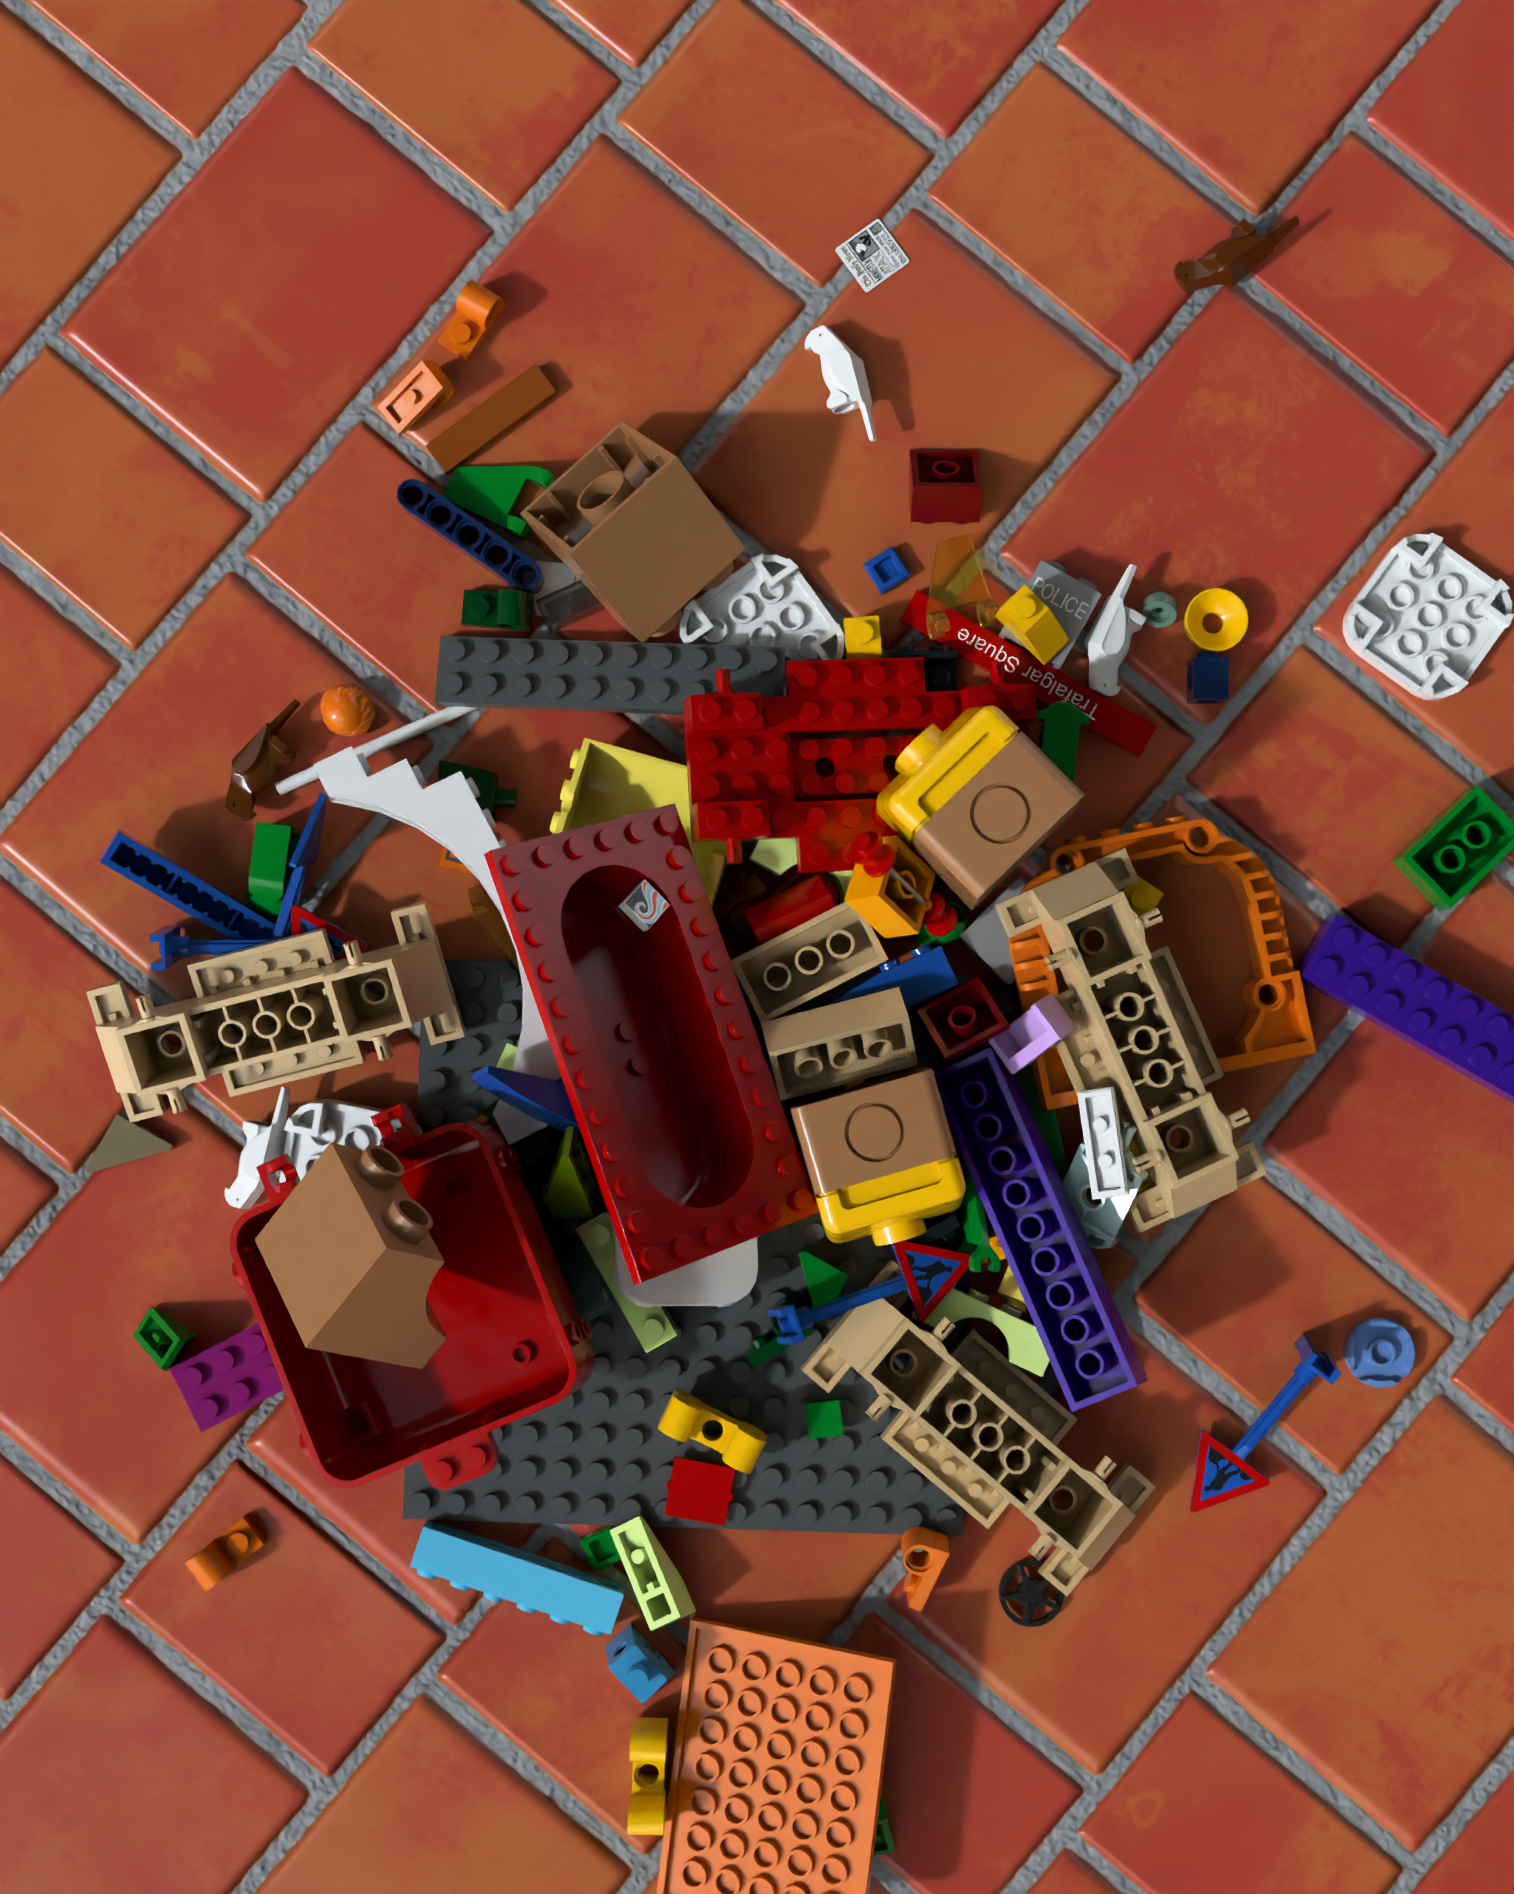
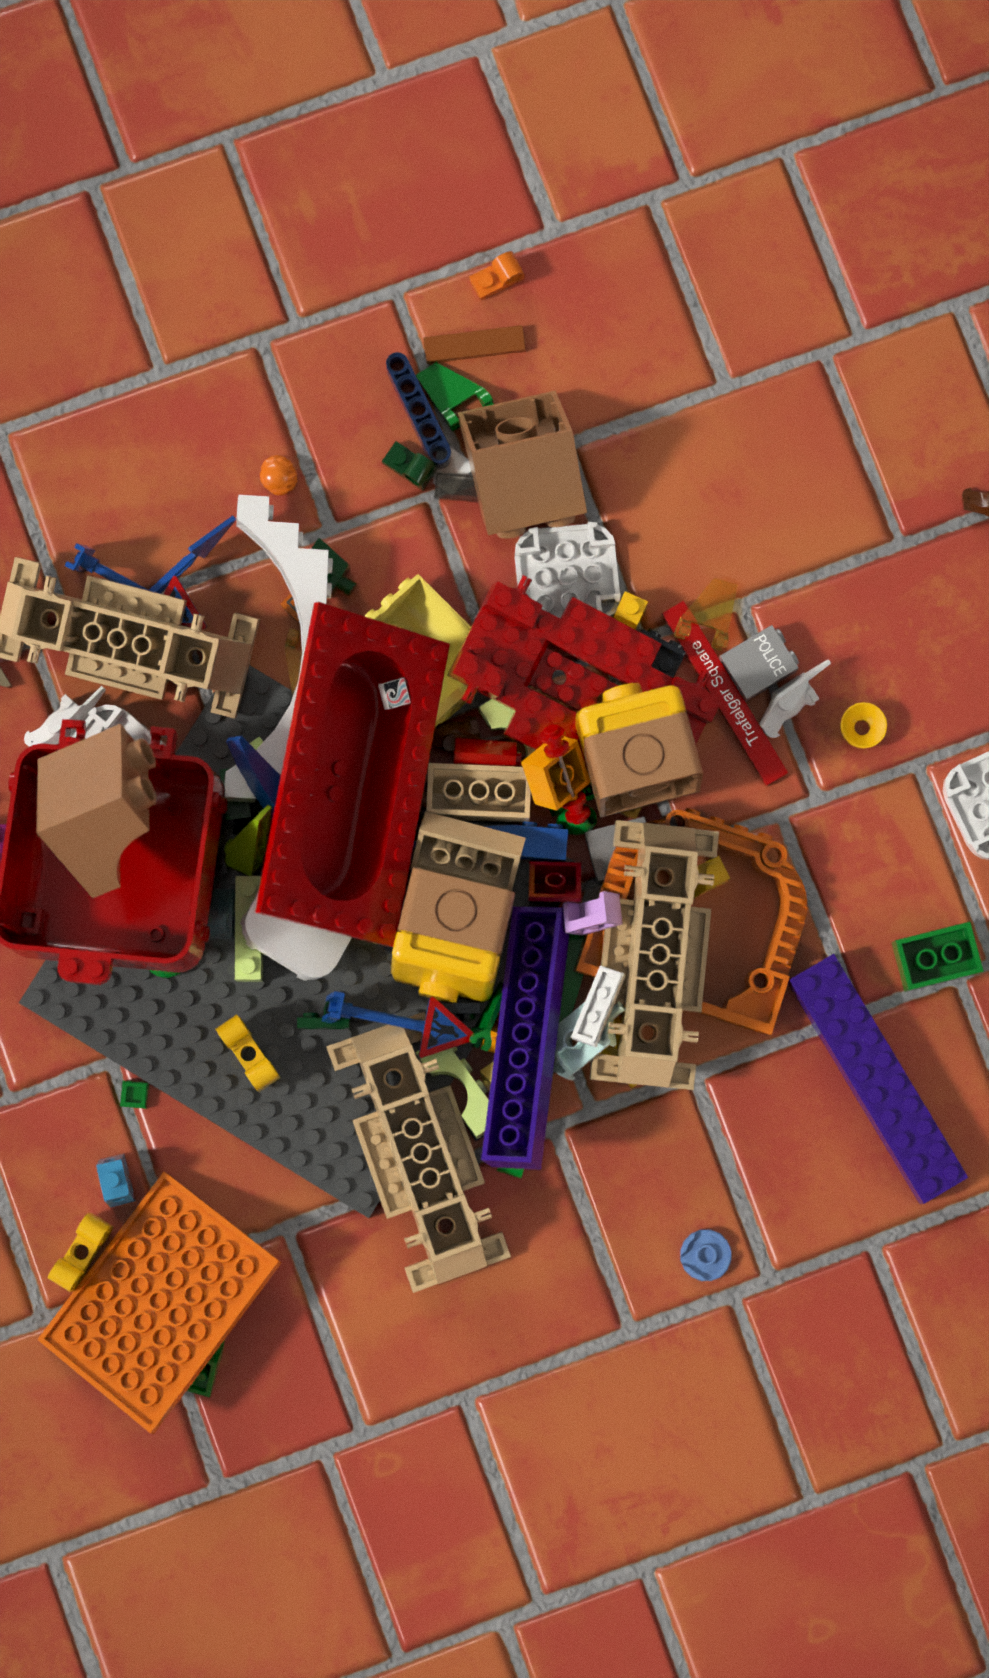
camera: 30 degrees right, 5 degrees down
(184, 889) = (112, 528): blue slope -> none
(258, 765) = (202, 478): reddish brown animal -> none
(270, 866) = (174, 545): green piece -> none
(380, 744) = (303, 509): white piece -> none
(419, 391) = (439, 302): orange plate -> none
(518, 1577) = (70, 1081): medium azure brick -> none
(597, 673) = (448, 539): dark grey plate -> none
(652, 1574) = (156, 1127): yellowish green slope -> none
(699, 1491) = (217, 1091): red piece -> none
(822, 1277) = (372, 997): green slope -> none
(823, 1418) = (322, 1089): green tile -> none
(843, 375) = (713, 440): white animal -> none
(872, 255) = (775, 375): sticker -> none
(886, 570) = (671, 578): blue tile -> none
(922, 1566) = (334, 1220): orange plate -> none
(945, 486) = (738, 545): dark red slope -> none
(1030, 1593) = (390, 1281): pearl dark grey wheel -> none
(1032, 624) = (742, 661): yellow slope -> none
(1061, 734) = (719, 746): green piece -> none
(1159, 610) = (831, 699): sand green tile -> none
(1207, 679) = (837, 760): dark blue brick -> none
(1222, 1470) = (561, 1274): blue piece -> none

